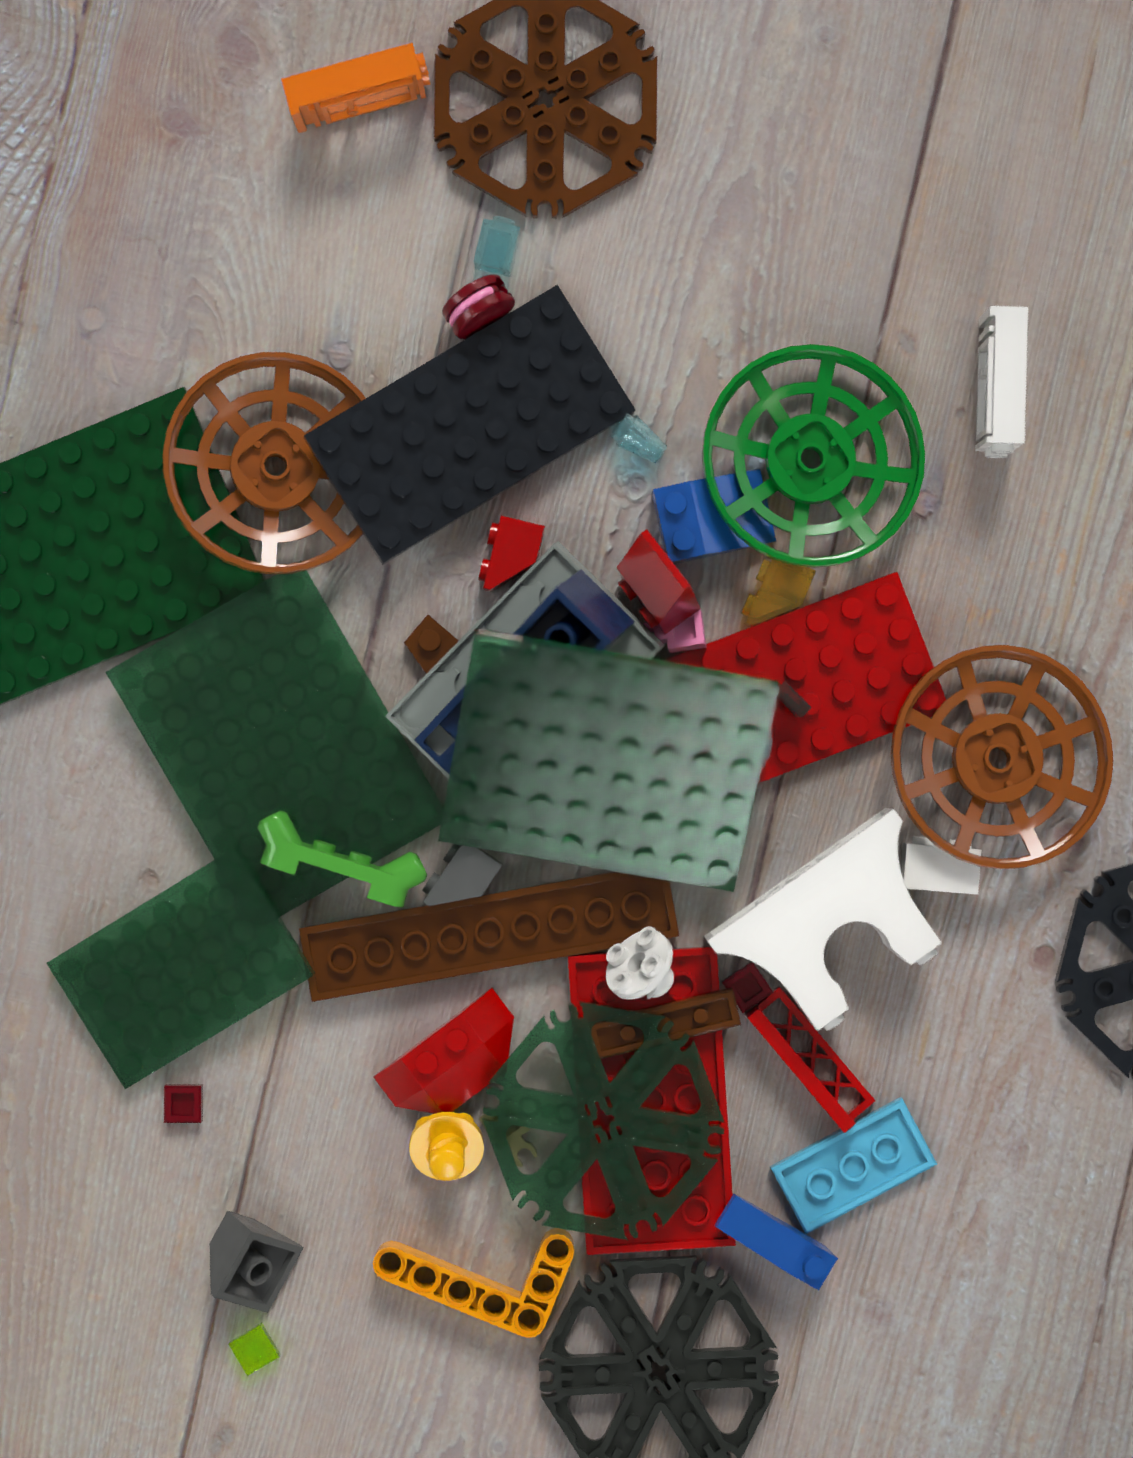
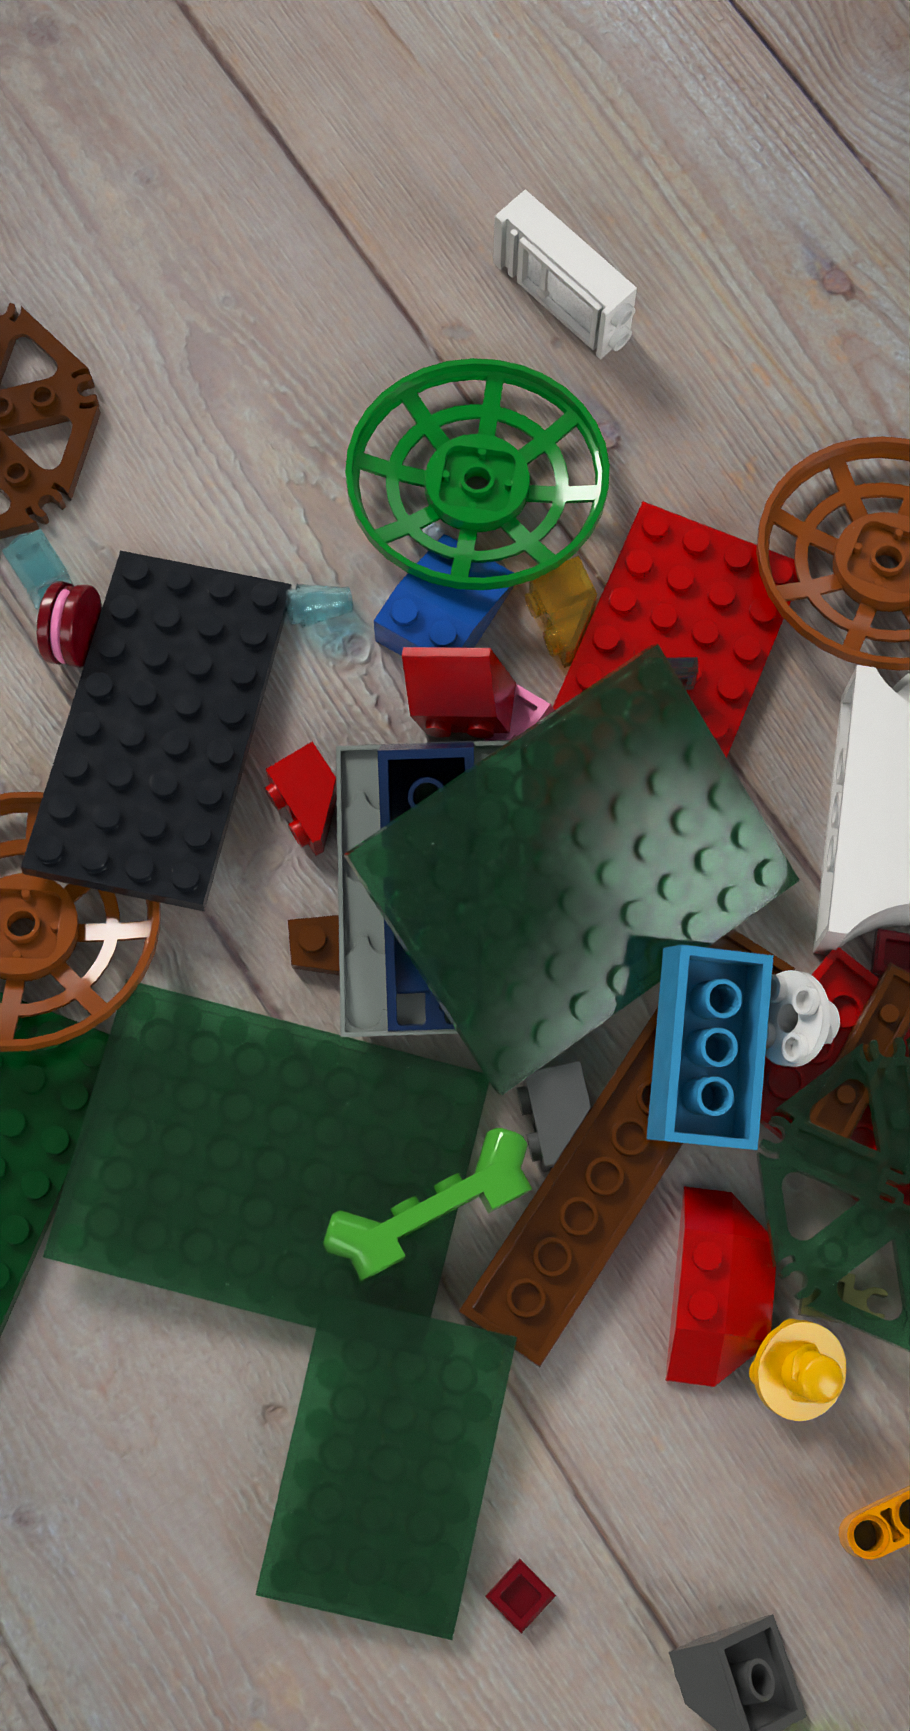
camera: 50 degrees left, 15 degrees down
(575, 934) = (710, 1047): none -> dark azure brick

